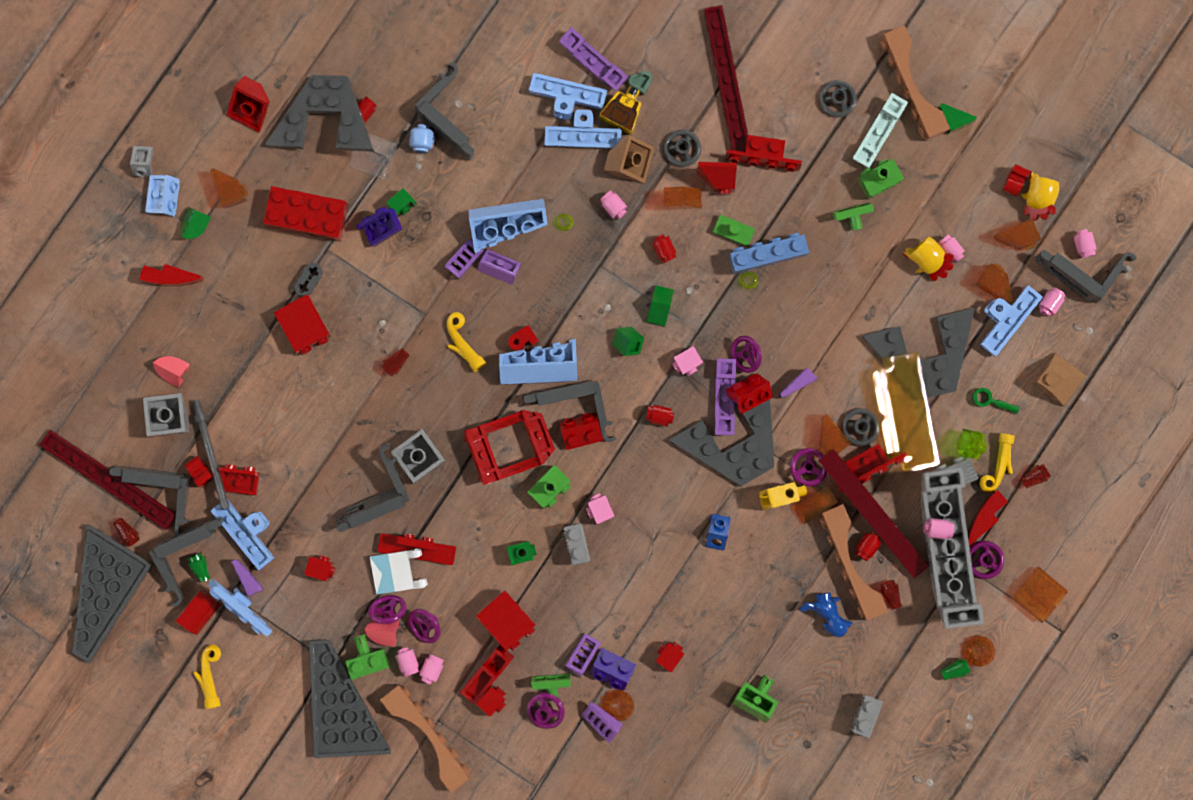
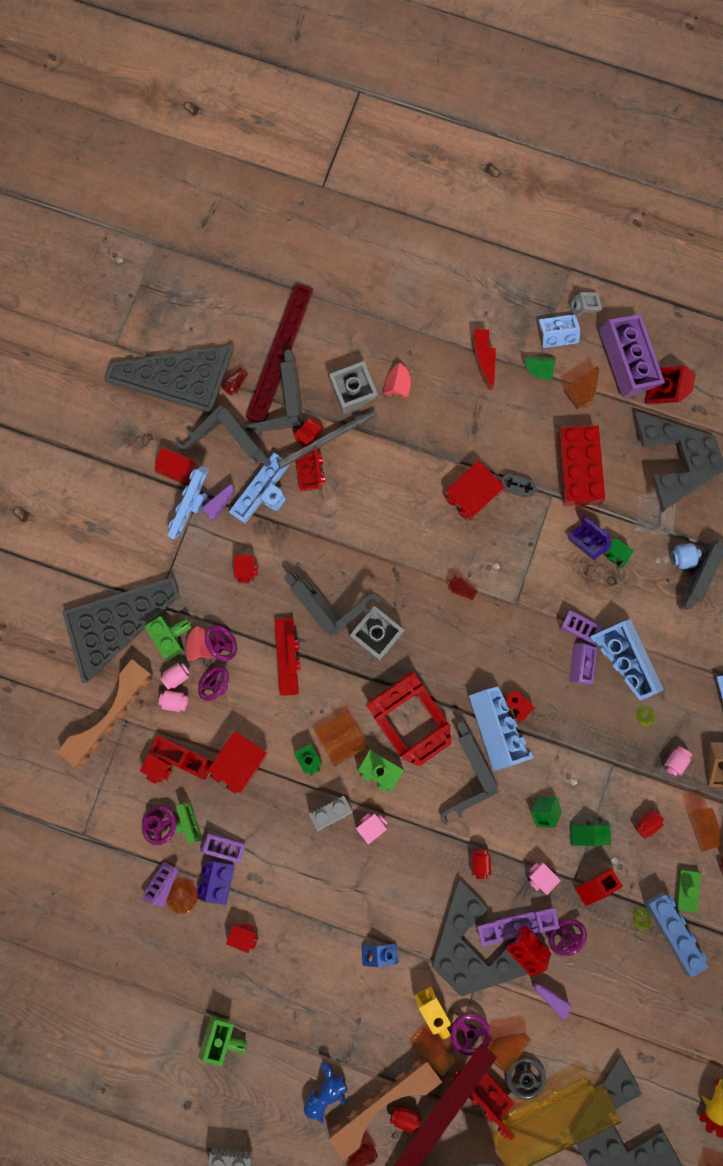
camera: 80 degrees right, 5 degrees down
(199, 566) = (219, 456): green cone -> none
(206, 681) = (114, 491): yellow plant -> none
(208, 132) = (631, 355): none -> medium lavender slope
(367, 108) = (700, 496): red brick -> none
(394, 573) = (258, 640): white flag -> none
(462, 347) = (493, 649): yellow plant -> none
(509, 517) = (341, 738): none -> clear orange slope
(580, 431) = (444, 787): red bracket -> none
(708, 312) = (598, 887): none -> red slope

